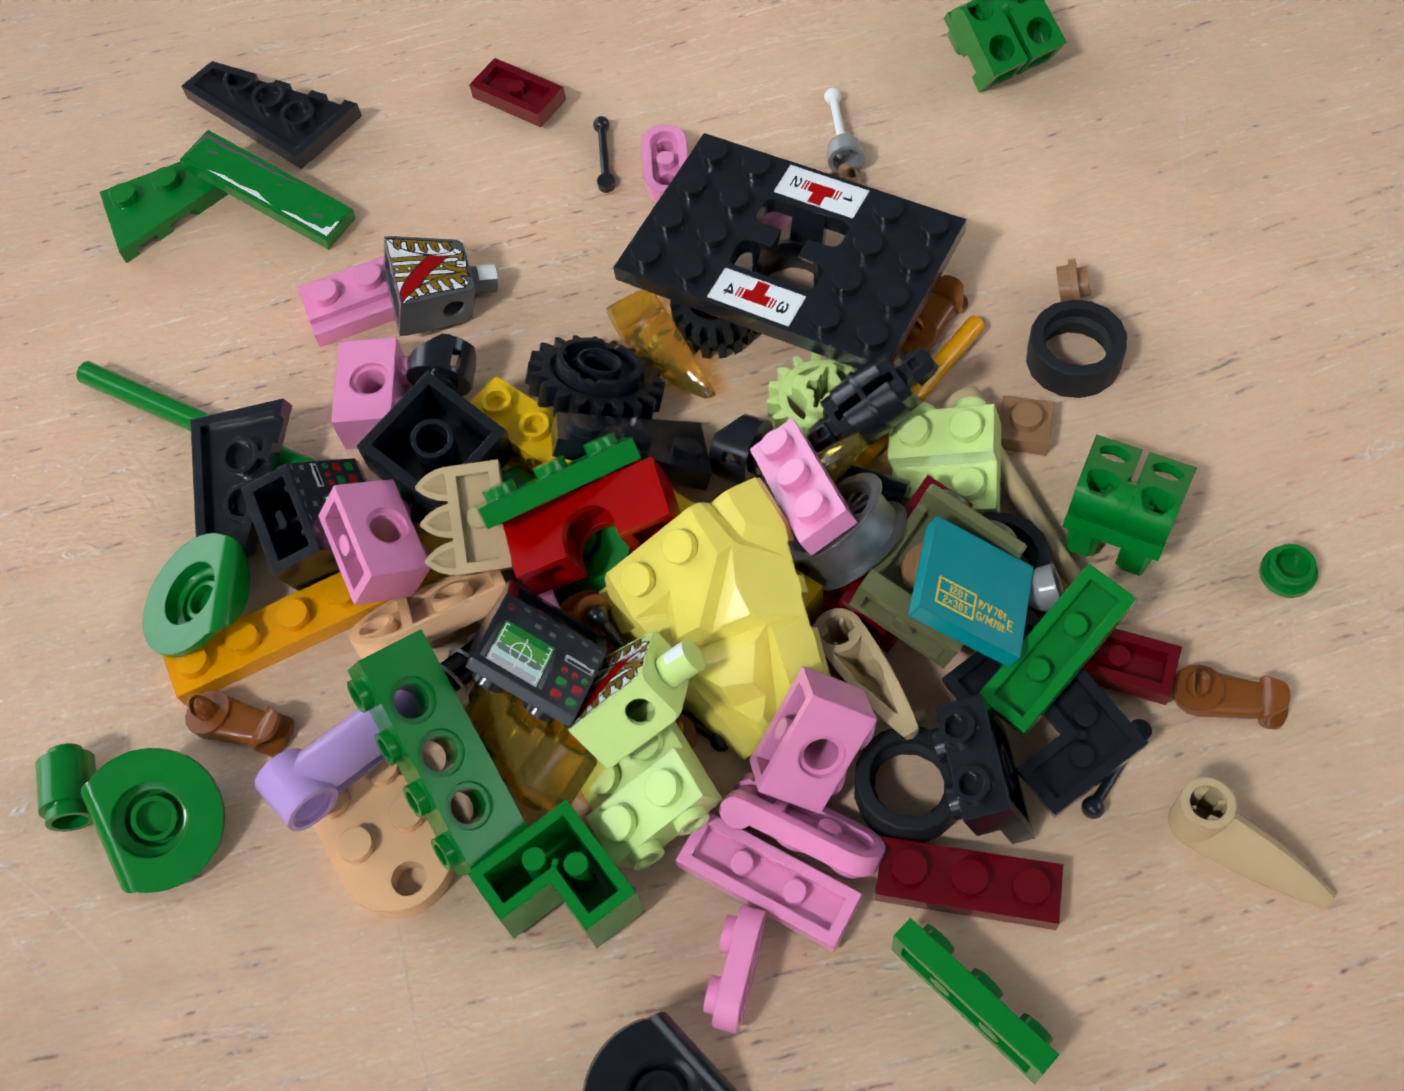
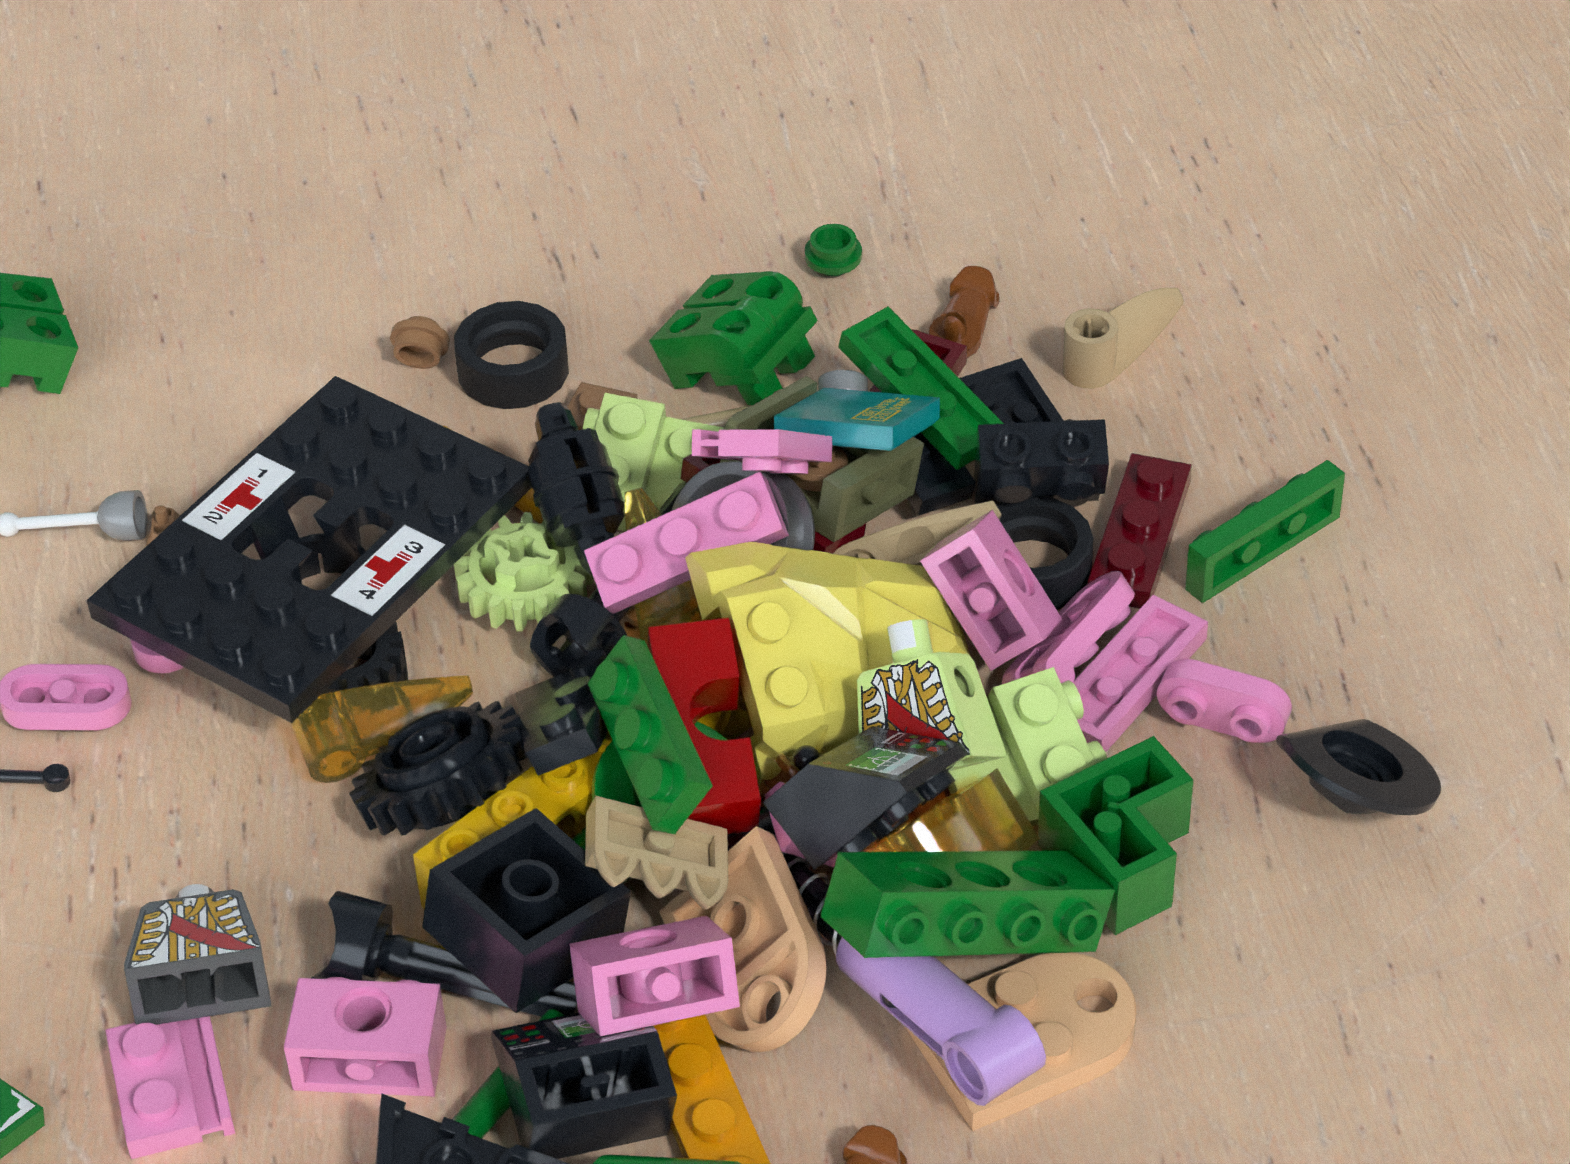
camera: 90 degrees left, 15 degrees down
(877, 507) = (764, 449): none -> bright pink plate

